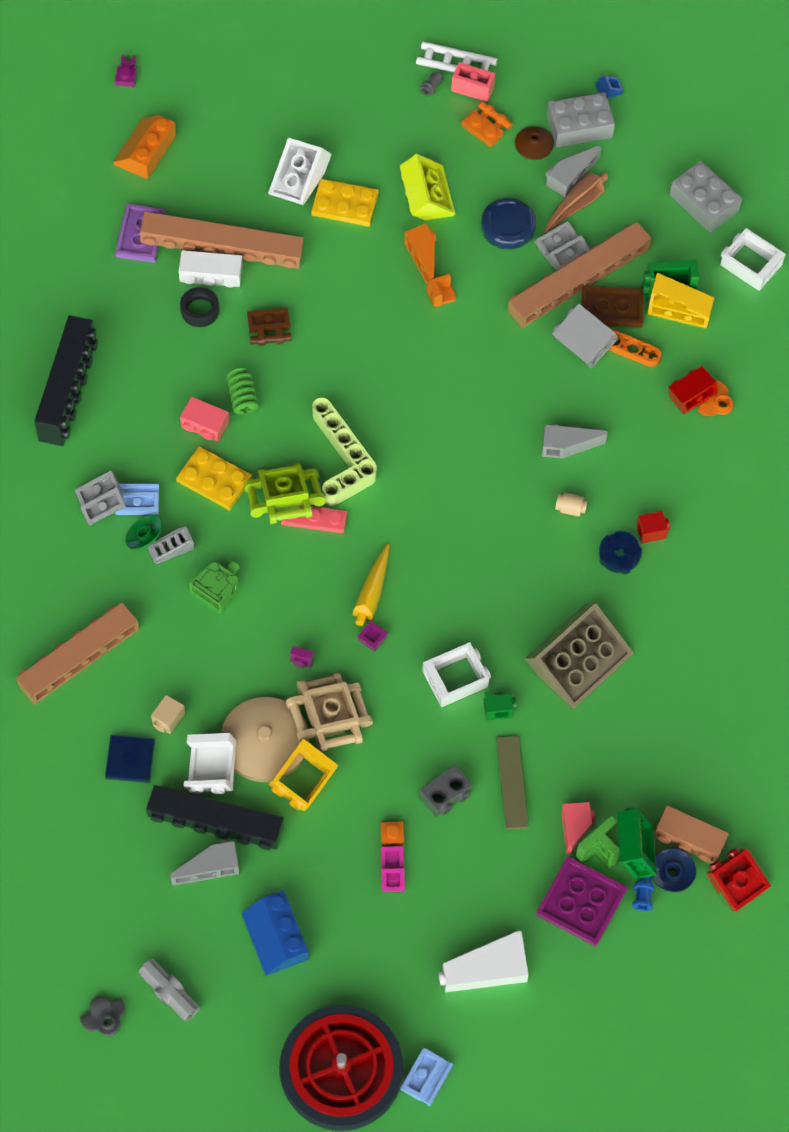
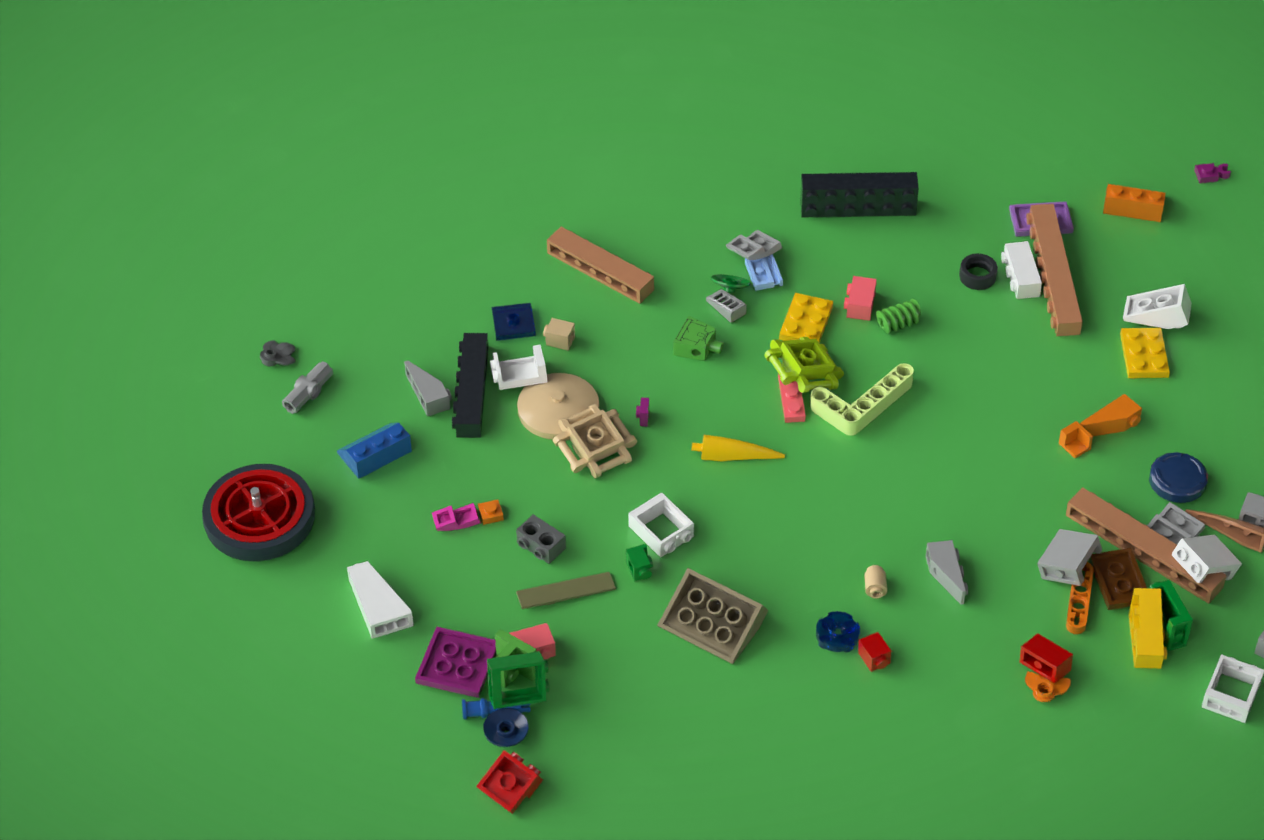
camera: 80 degrees right, 15 degrees down
(269, 320) = (985, 322): reddish brown plate -> none
(317, 759) = (544, 438): yellow window -> none
(372, 636) = (682, 458): magenta plate -> none
(426, 188) = (1188, 407): neon yellow slope -> none
(426, 1077) = (263, 576): light blue plate -> none
(616, 230) = (1205, 556): none -> white panel
(691, 835) = (546, 736): nougat brick -> none

